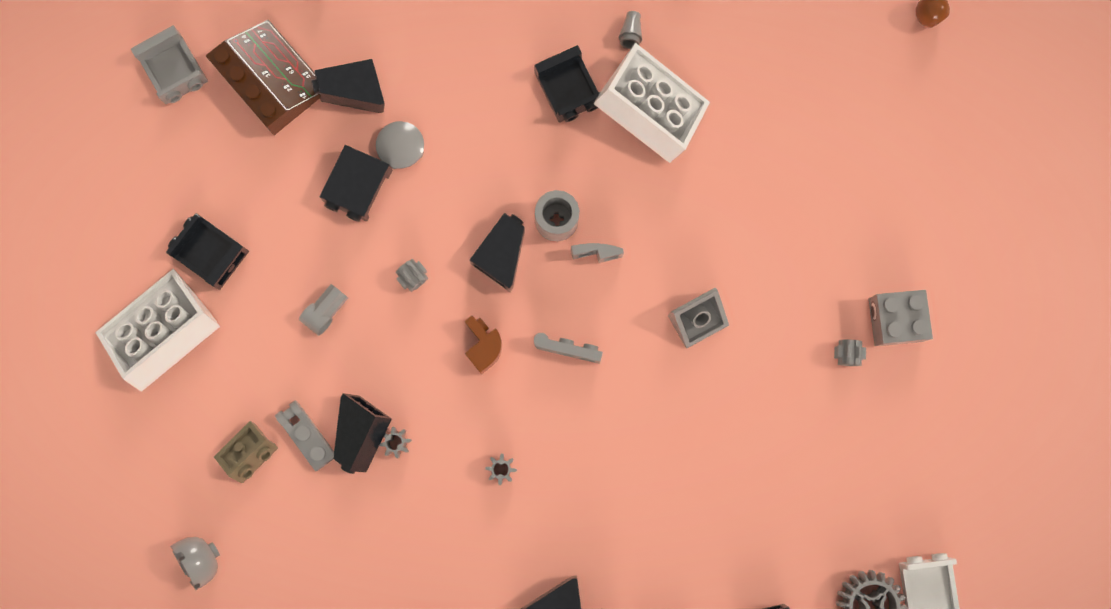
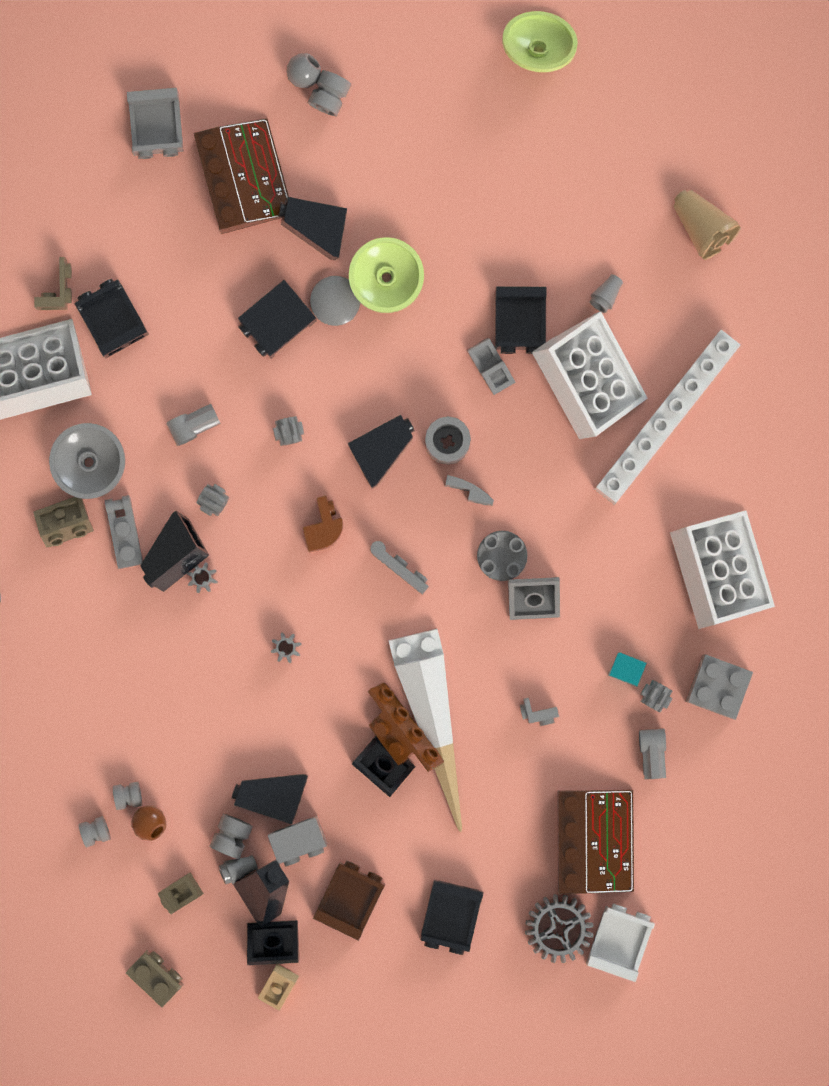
camera: 30 degrees right, 5 degrees up
(146, 261) = (49, 301): none -> dark tan bracket
(224, 387) = (69, 457): none -> light grey dish
(372, 368) = (212, 500): none -> light grey gear
(430, 85) = (384, 257): none -> yellowish green dish
(562, 138) = (491, 366): none -> light grey slope
(635, 434) = (423, 678): none -> white plate
(640, 534) = (381, 768): none -> black slope
(641, 496) = (400, 732): none -> dark orange bracket
(653, 295) = (502, 555): none -> light grey dish
(736, 108) = (667, 417): none -> white brick
(759, 419) = (544, 716): none -> light grey bracket
(814, 341) = (627, 669): none -> teal panel
(849, 216) = (722, 569): none -> white slope
(861, 510) = (595, 841): none -> reddish brown slope
(869, 399) = (652, 746): none -> light grey piece

